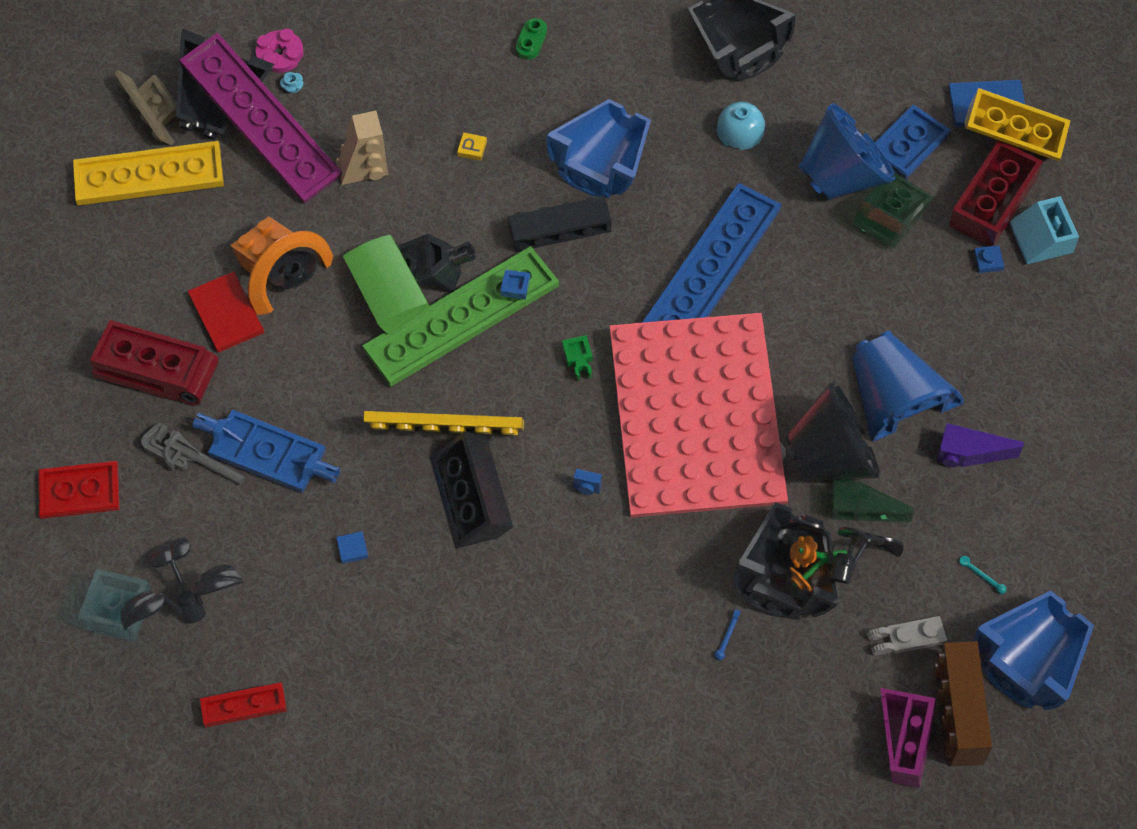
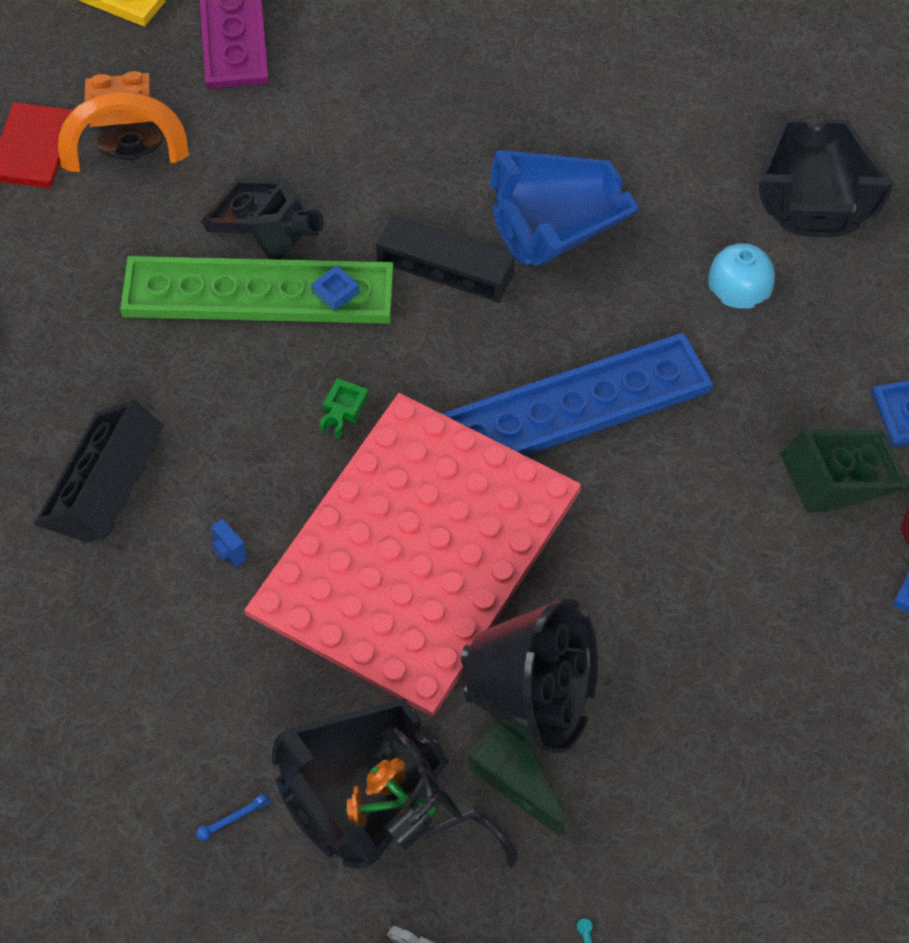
camera: 35 degrees right, 5 degrees down
(363, 151) = (302, 63): tan wedge -> none
(386, 282) = (203, 206): bright green slope -> none
(433, 422) = (131, 383): yellow plate -> none
(472, 146) = (427, 130): yellow tile -> none
(531, 37) = (591, 59): green plate -> none
(843, 158) = (826, 369): blue cone -> none
(897, 384) = (680, 667): blue cone -> none
(972, 447) = (705, 797): dark purple slope -> none

